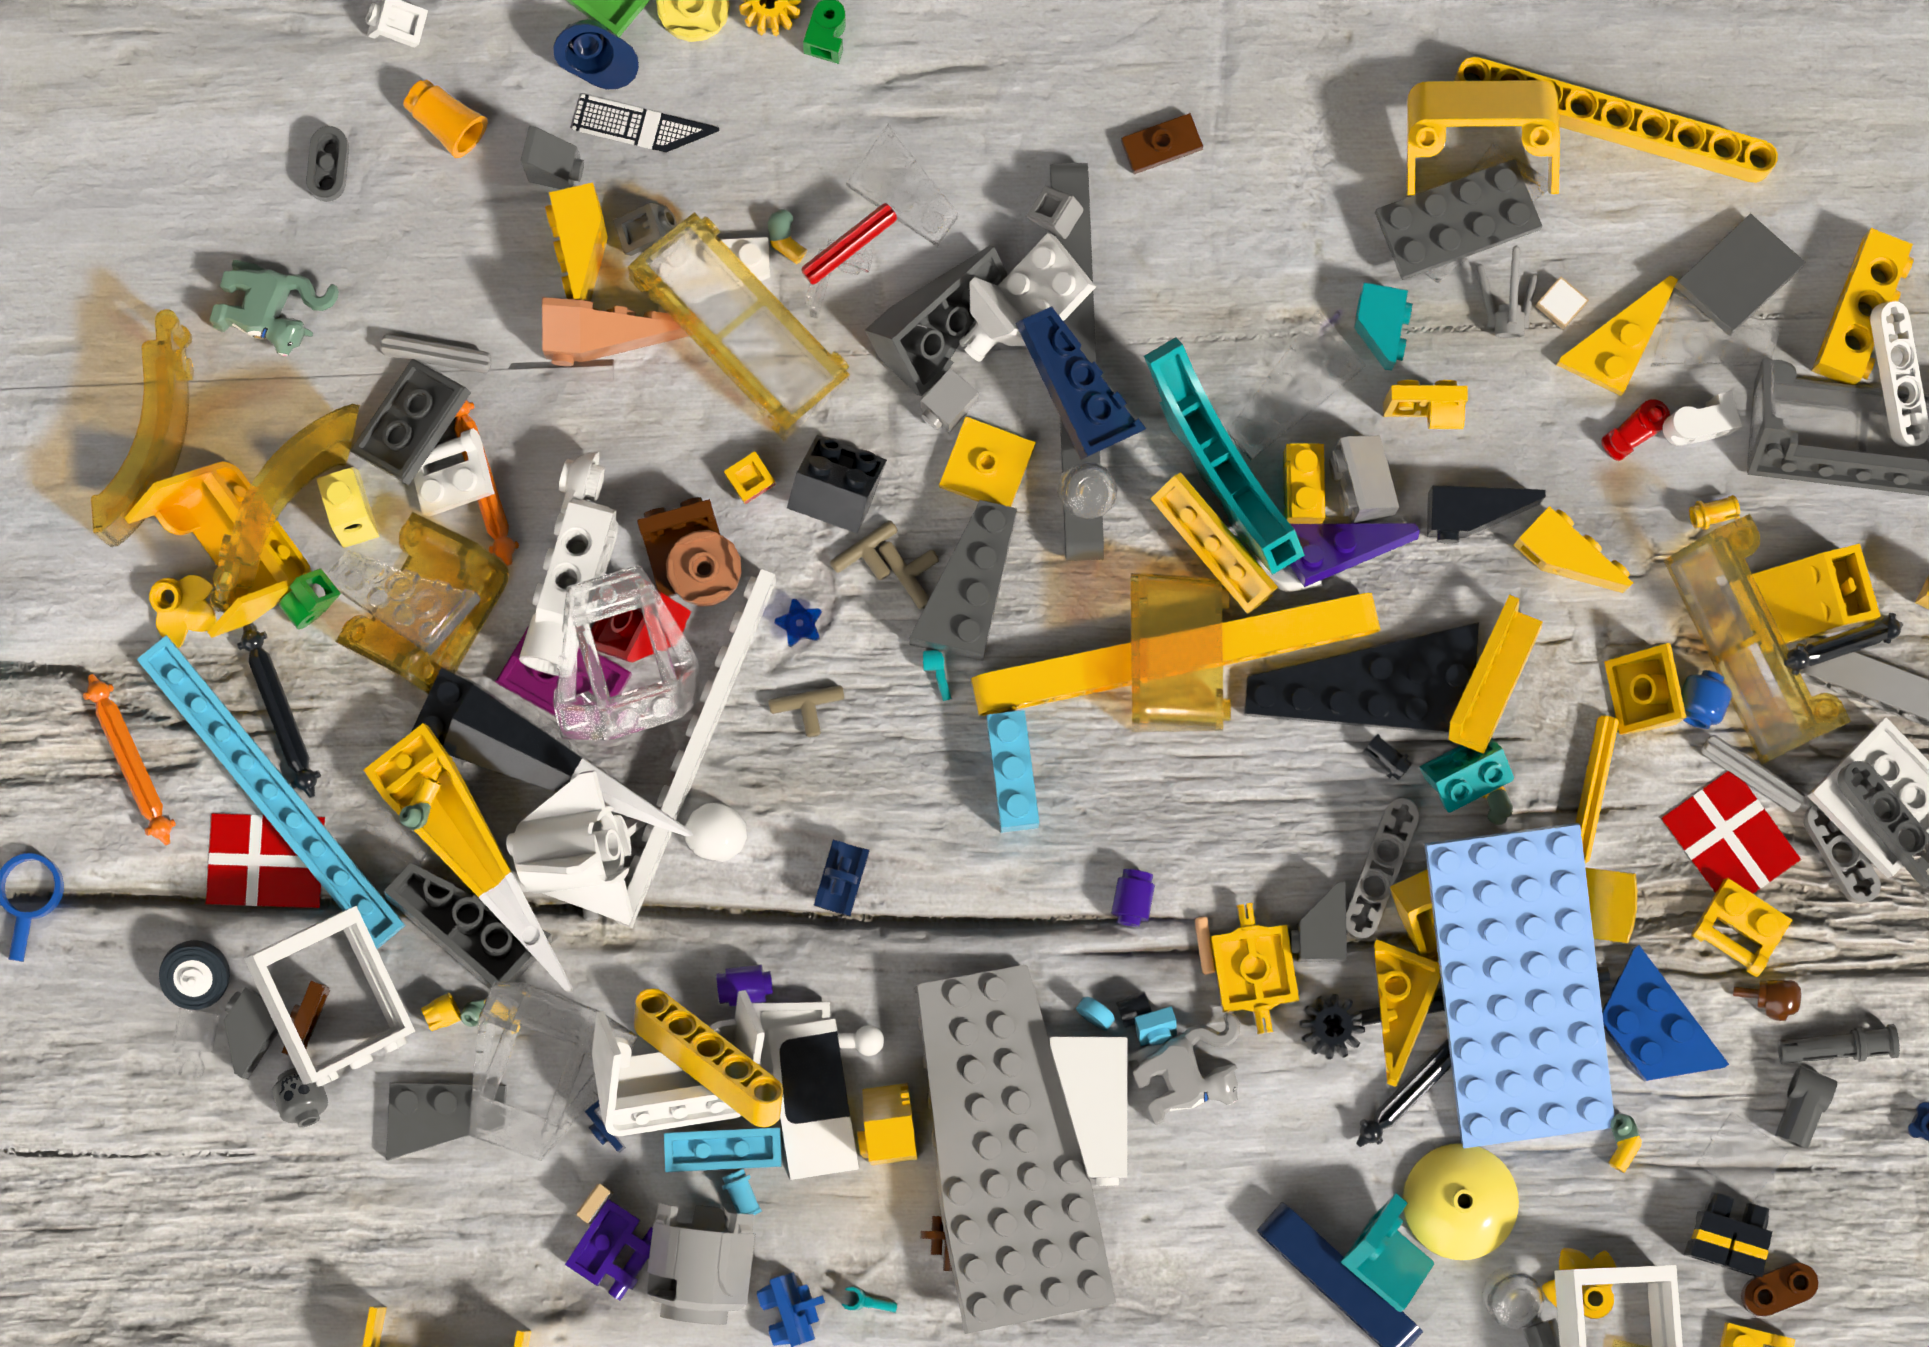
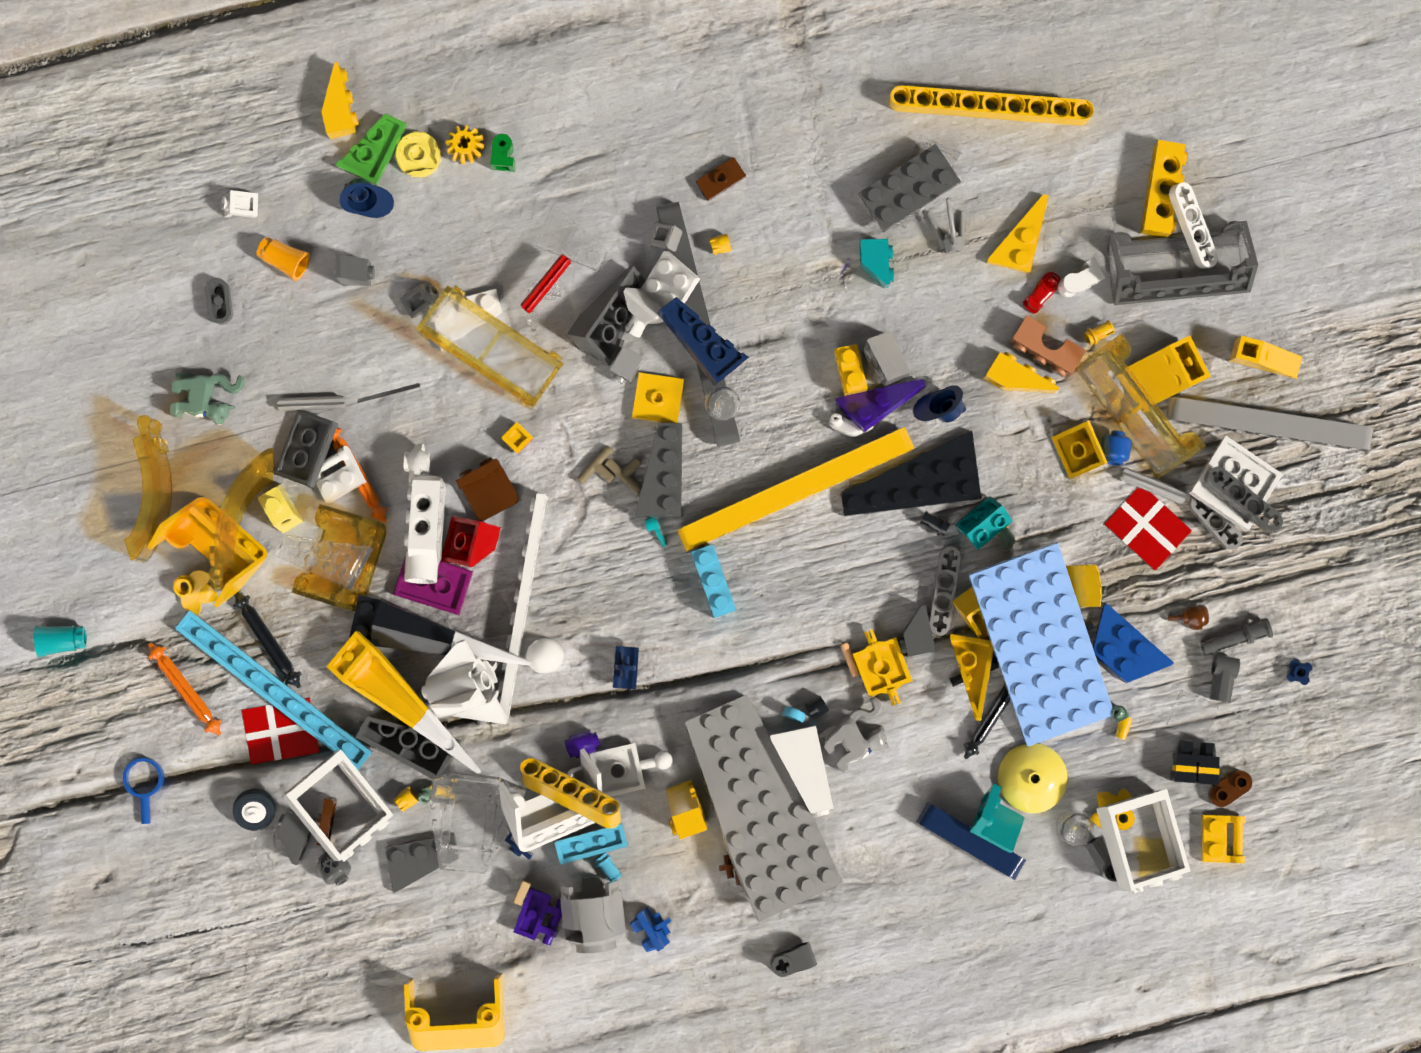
camera: 10 degrees left, 5 degrees up
(303, 604) = (265, 573): green leg -> none
(417, 813) = (364, 686): arm -> none
(580, 225) = (383, 312): yellow slope -> none
(582, 333) = (397, 372): wedge -> none
(633, 711) = (466, 604): clear windscreen -> none
(637, 125) = (401, 236): sticker -> none
(702, 548) = (490, 497): nougat plate -> none
(780, 236) = (502, 285): arm -> none
(797, 633) = (560, 519): clear blue plate -> none
(806, 702) = (582, 567): dark tan piece -> none
(813, 1100) = (638, 802): sticker -> none
(836, 483) = (570, 430): black slope -> none
(869, 1302) = (696, 913): teal hand -> none
(1133, 897) = (801, 641): dark purple brick -> none
(1139, 244) = (720, 244): none -> yellow hose
(1156, 1027) = (831, 715): medium azure plate -> none
(1177, 653) = (796, 488): clear yellow windscreen -> none
(1214, 543) = (804, 418): yellow fence -> none
(1219, 461) = (797, 367): teal arch -> none
(1302, 380) = (835, 307): clear wing -> none
(1345, 1026) = (928, 695): black gear -> none
(1440, 403) = (923, 304): yellow plate -> none
(1440, 571) = (941, 405): none -> dark blue piece
(1463, 511) = (949, 365): black slope -> none
(1483, 103) = (909, 115): yellow windscreen -> none
(1494, 677) = (988, 462): yellow fence -> none
(1562, 303) = (982, 225): white tile -> none
(1596, 780) = (1061, 510): yellow axle -> none
(1646, 541) = (1029, 339): none -> nougat arch
(1740, 274) = (1085, 184): dark grey tile -> none
(1748, 917) = (1167, 572): yellow plate -> none
(1843, 643) = (1192, 398): black wheel -> none

